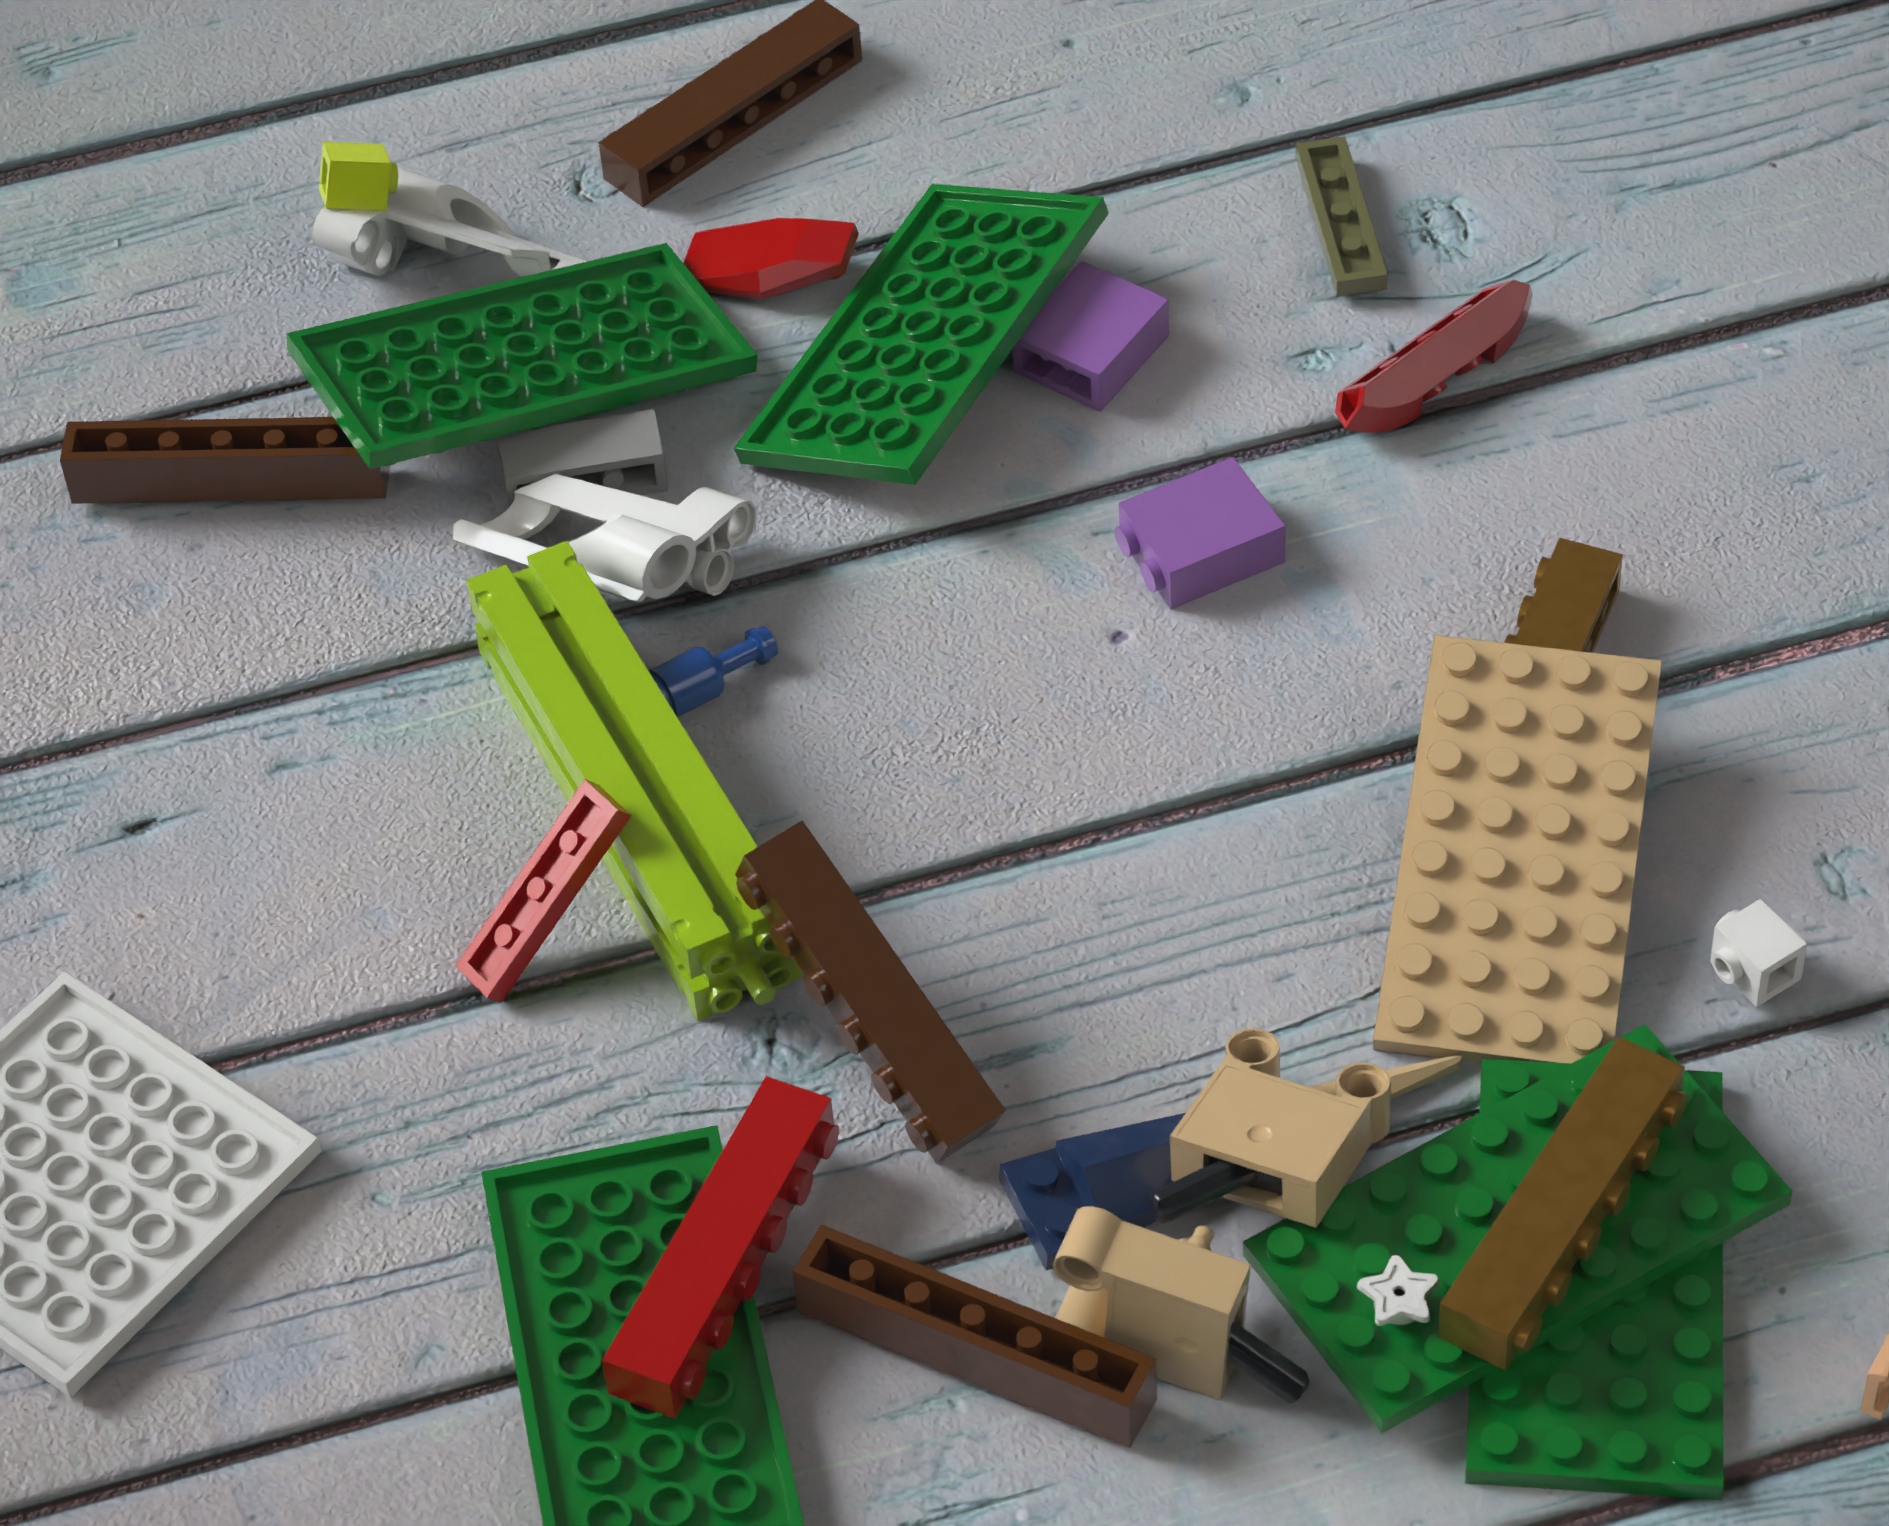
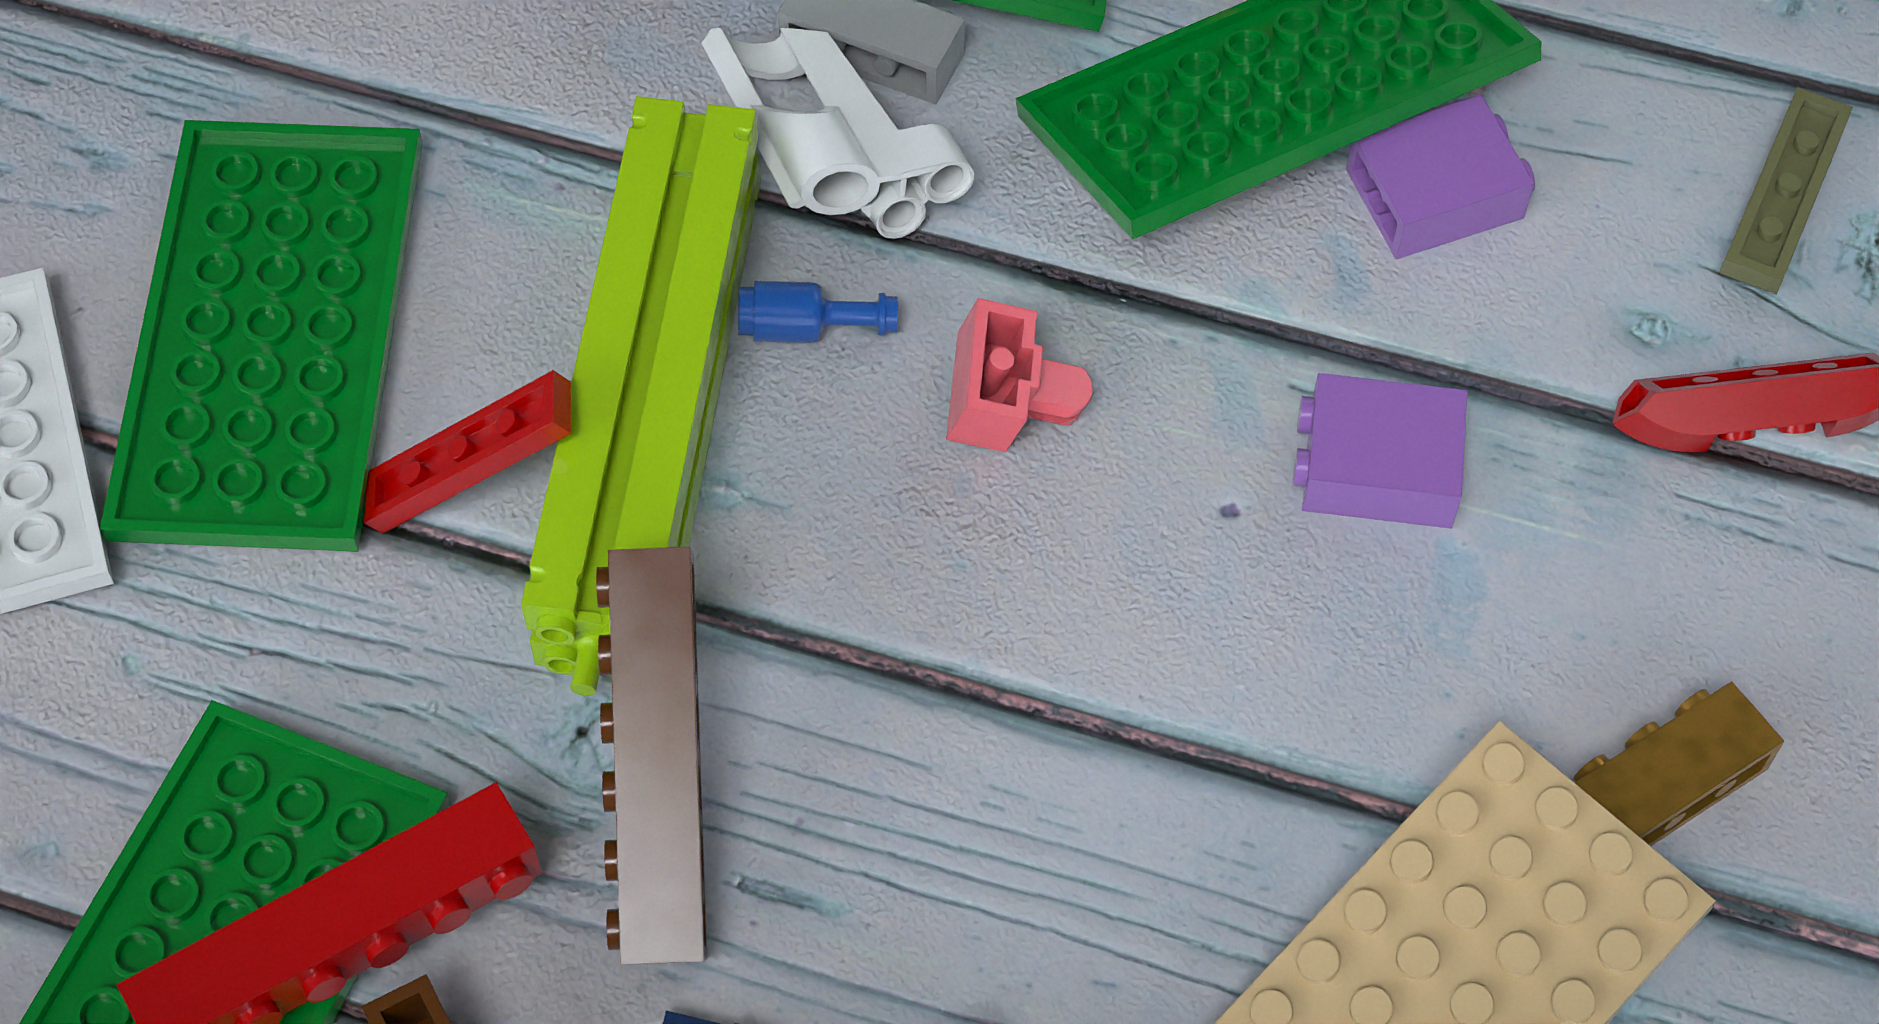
camera: 30 degrees right, 10 degrees up
(289, 919) = (265, 338): none -> green plate
(891, 633) = (1006, 380): none -> coral brick

